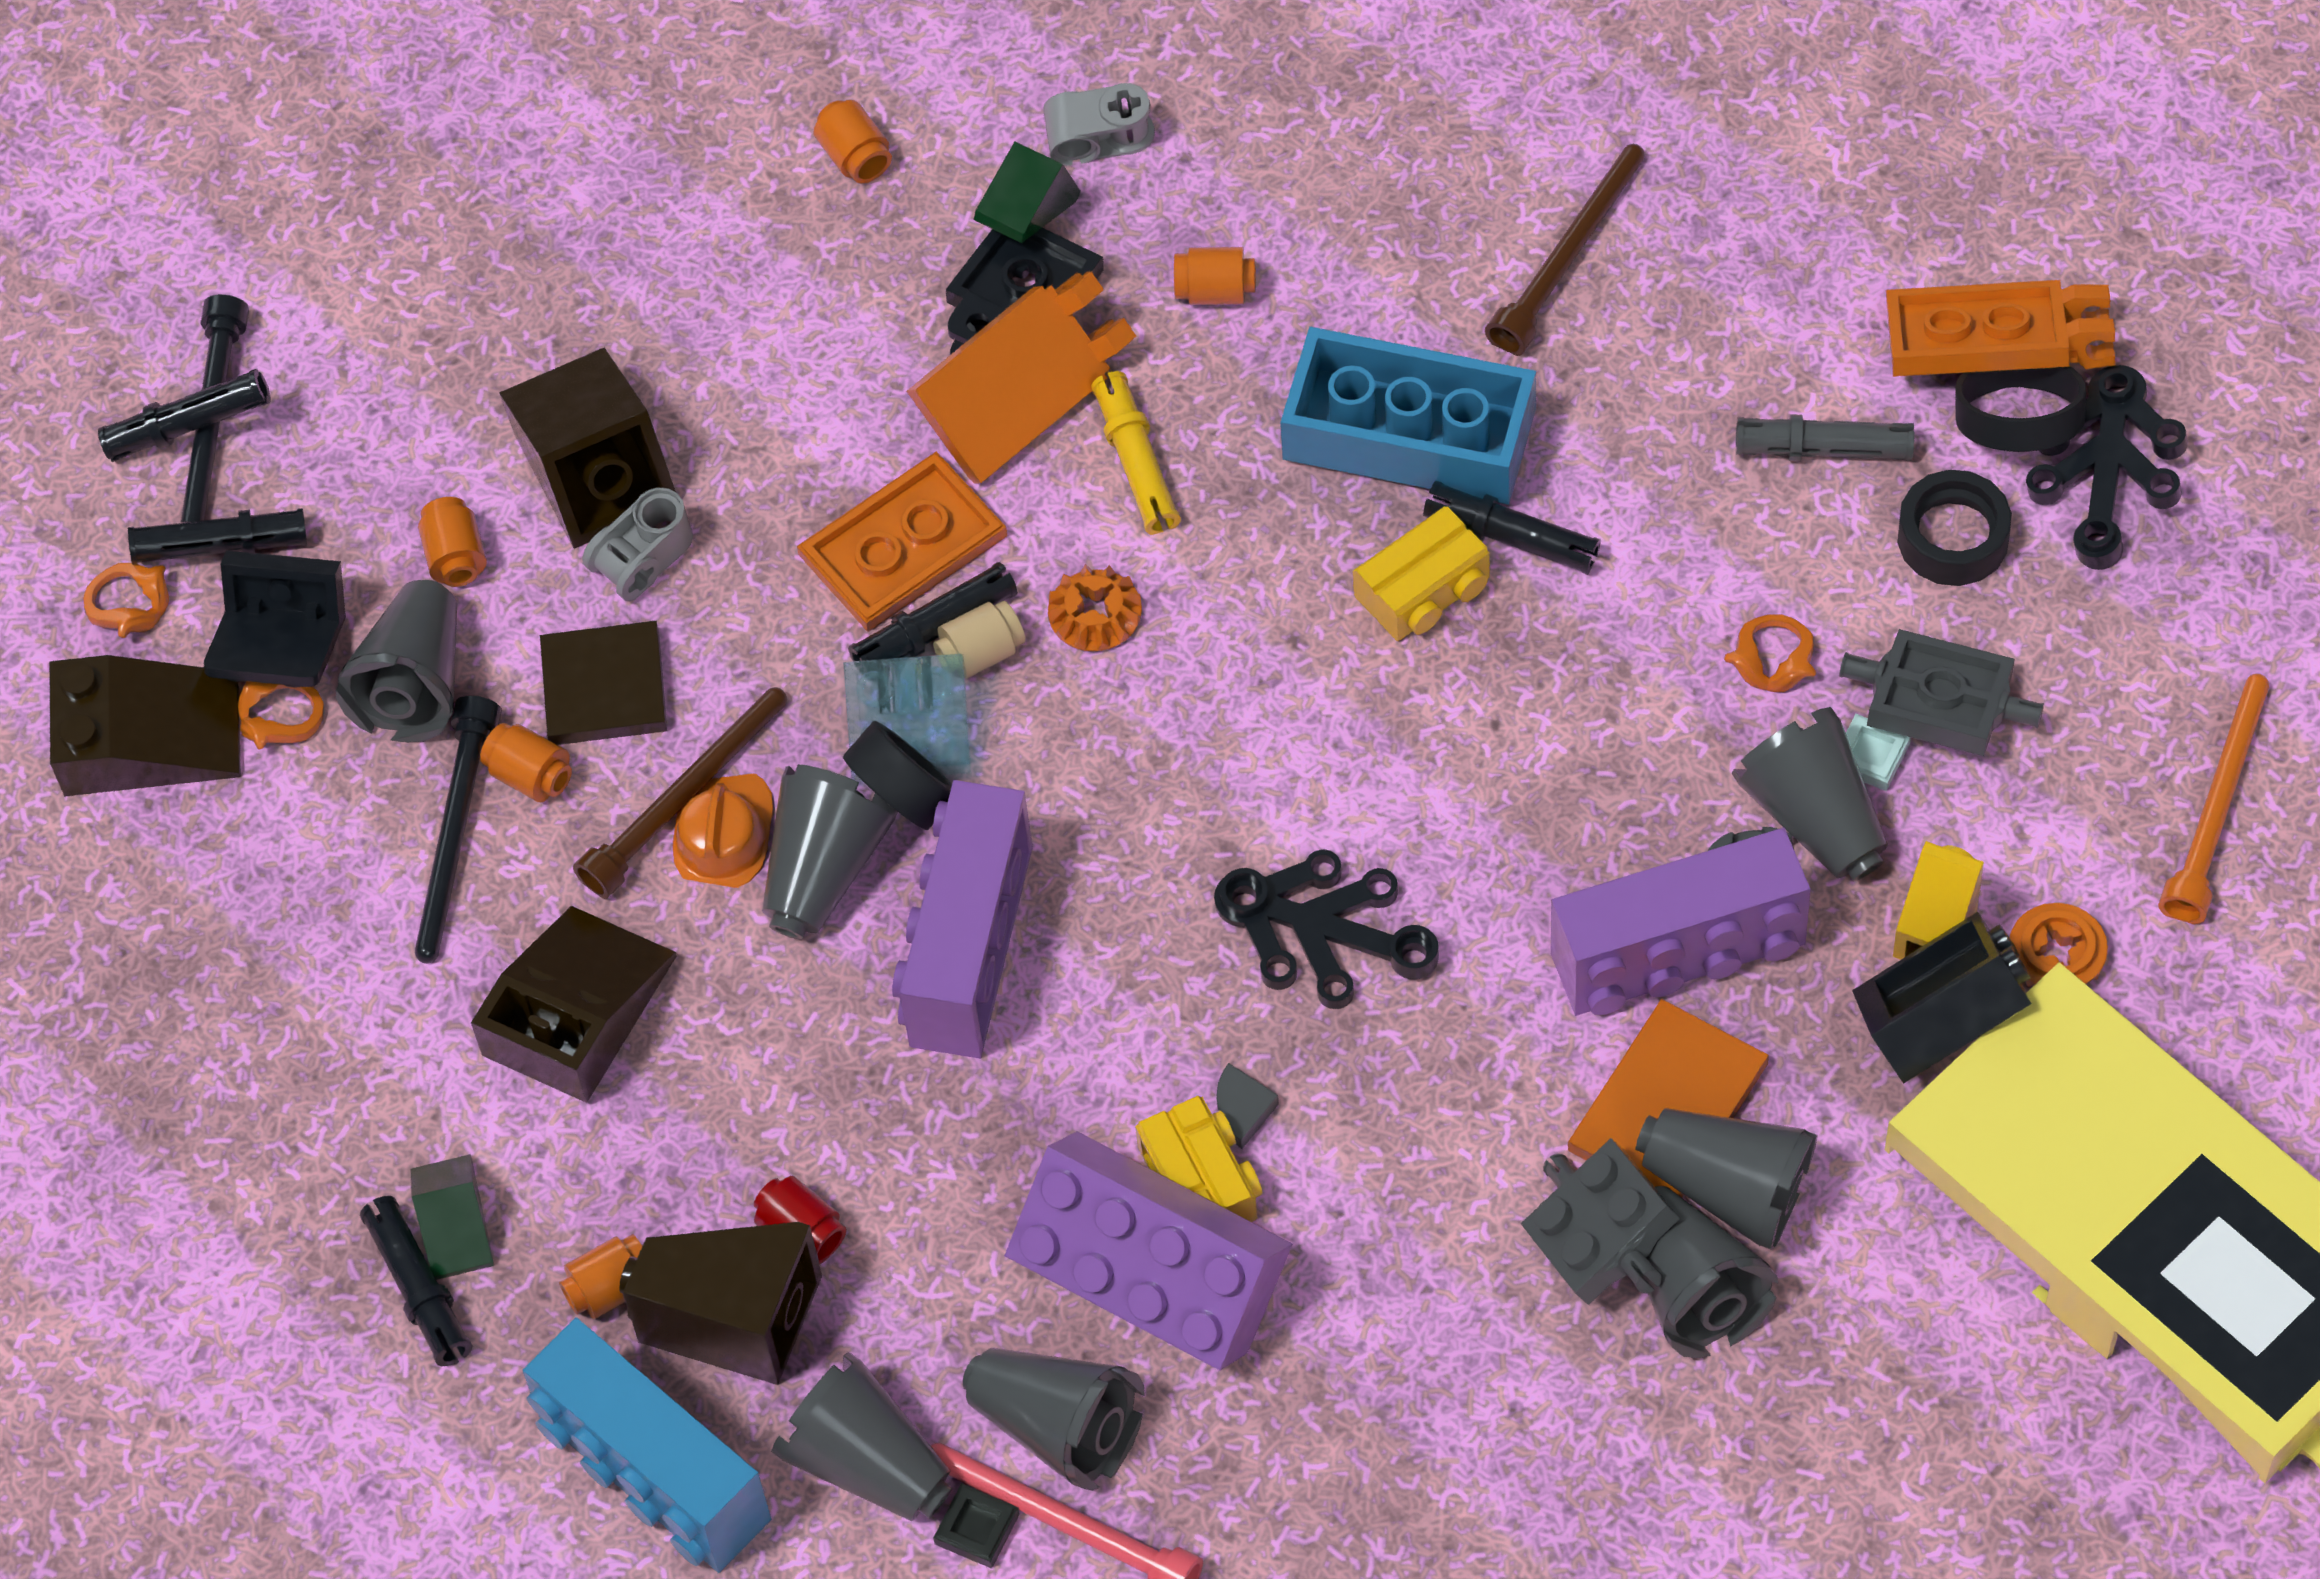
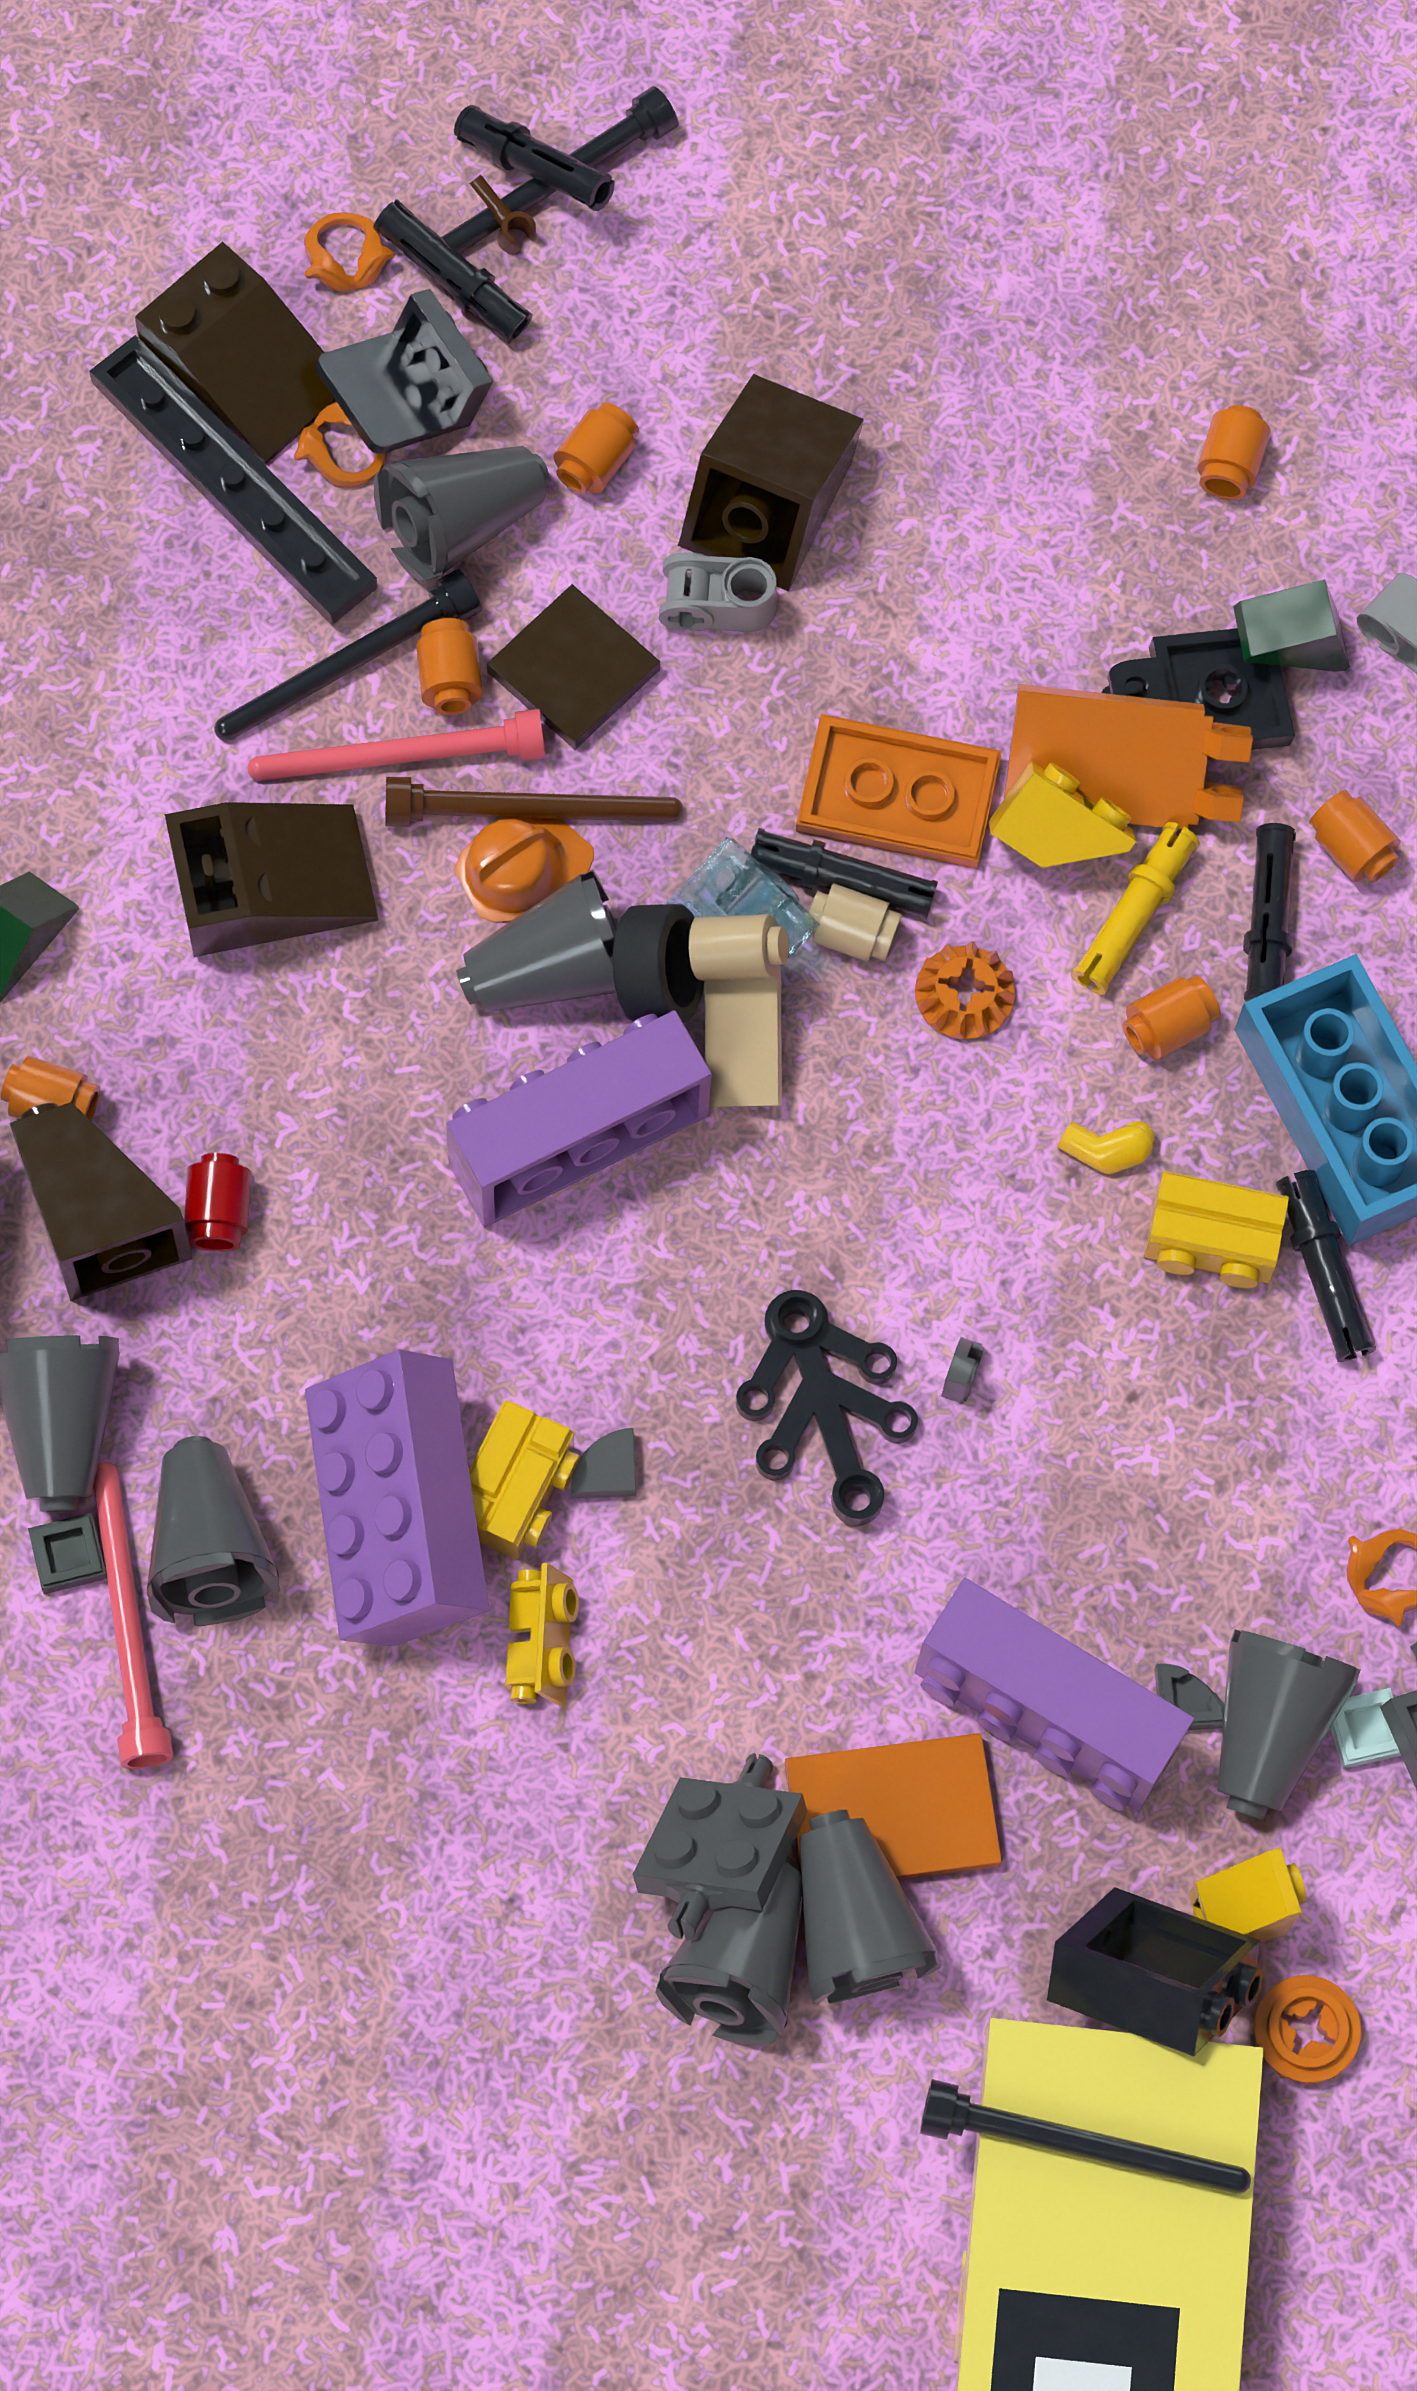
camera: 40 degrees right, 10 degrees up
(223, 463) = (504, 216): none -> reddish brown hand
(235, 802) = (233, 479): none -> black plate
(626, 752) = (517, 736): none -> coral piece
(974, 746) = (742, 979): none -> tan door
(1027, 452) = (1057, 824): none -> yellow slope
(1177, 335) = (1269, 939): none -> black pin
(1238, 488) = (1171, 1016): none -> orange brick
(1302, 602) = (1111, 1151): none -> yellow arm
(1351, 1255) = (545, 1606): none -> yellow hinge
(1381, 815) = (962, 1370): none -> dark grey tile
(1936, 1195) = (952, 2113): none -> black piece

